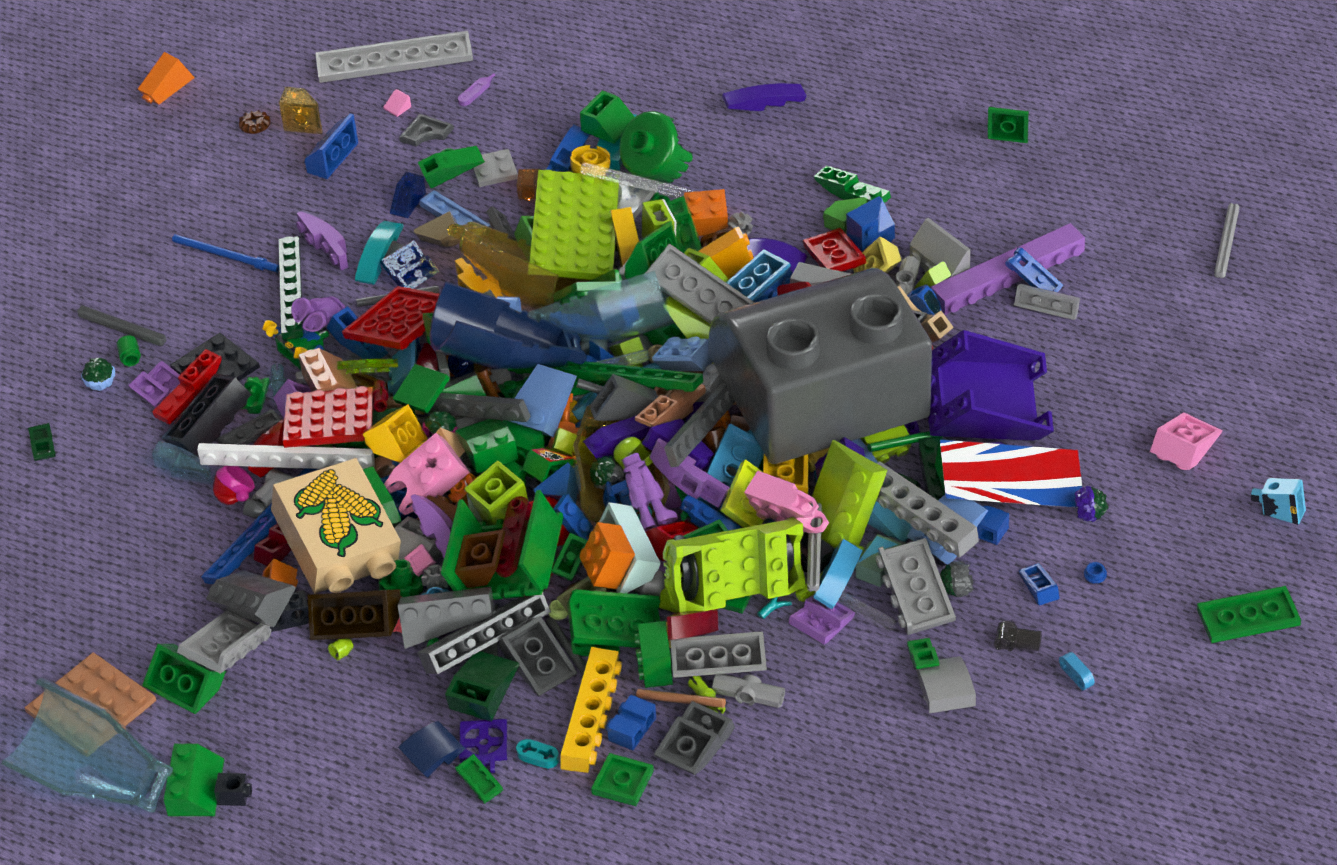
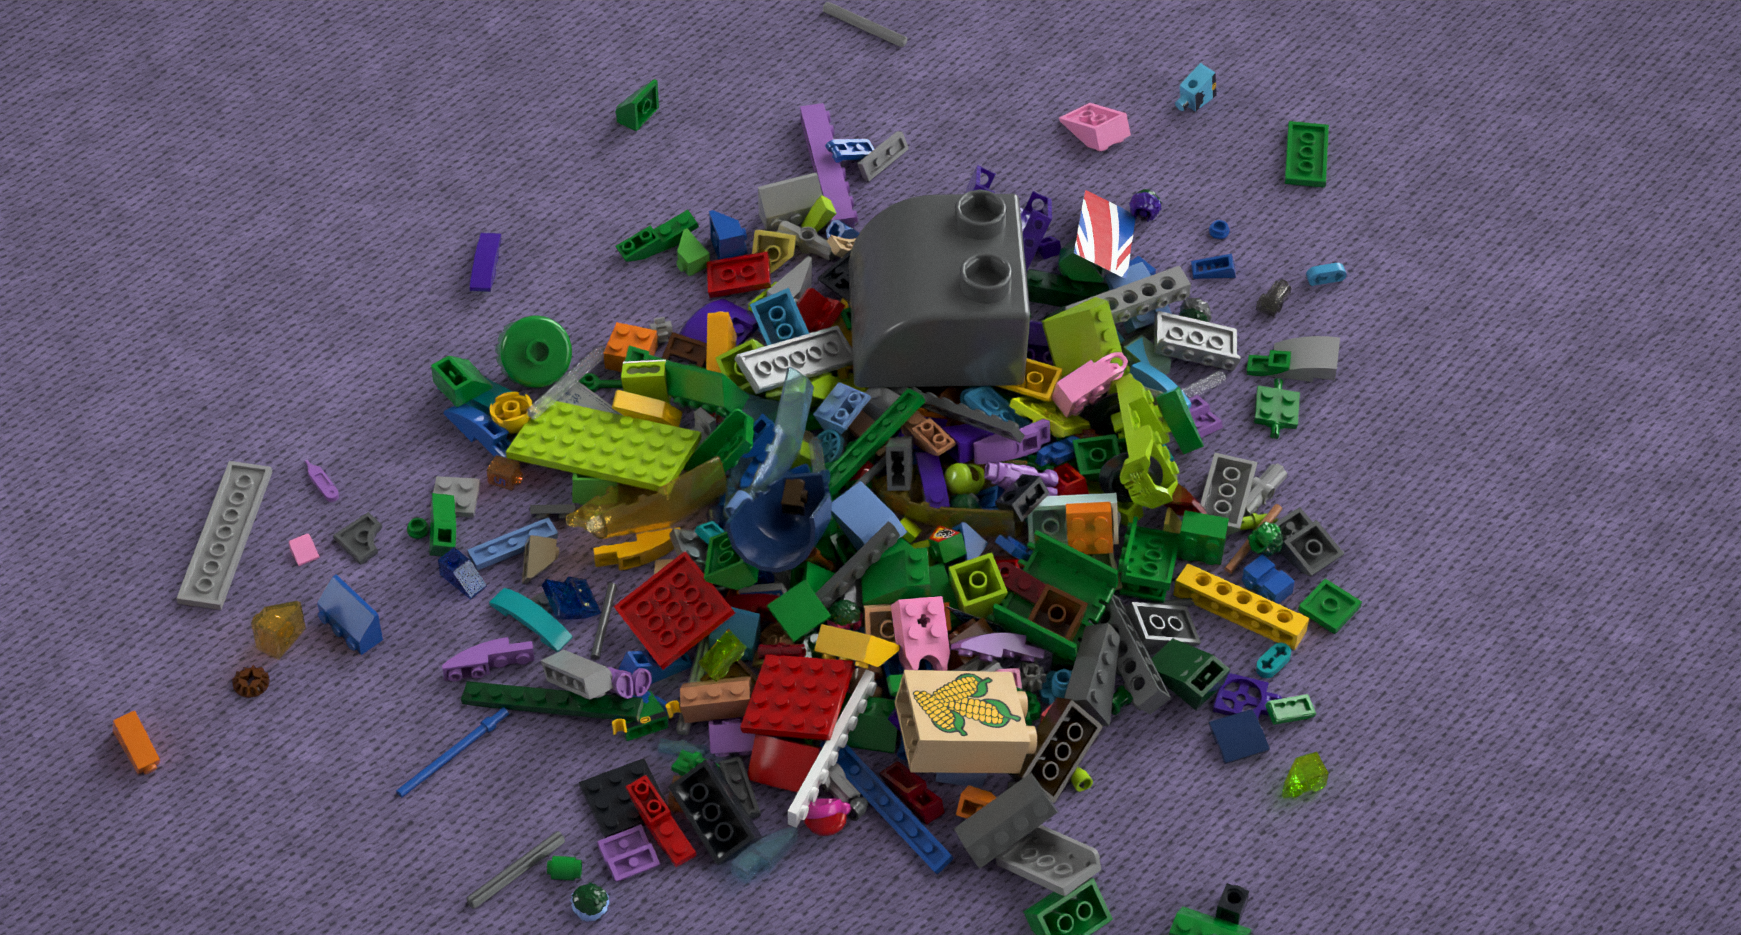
camera: 75 degrees left, 5 degrees up
(311, 284) = (577, 674): none -> light grey brick
(401, 807) = (1305, 775): none -> clear neon green slope
(537, 333) = (794, 497): none -> dark brown brick
(610, 491) = (1023, 496): none -> black brick
(671, 700) = (1266, 539): none -> green piece
(792, 589) = (1179, 420): none -> green slope
(869, 677) = (1276, 407): none -> green plate

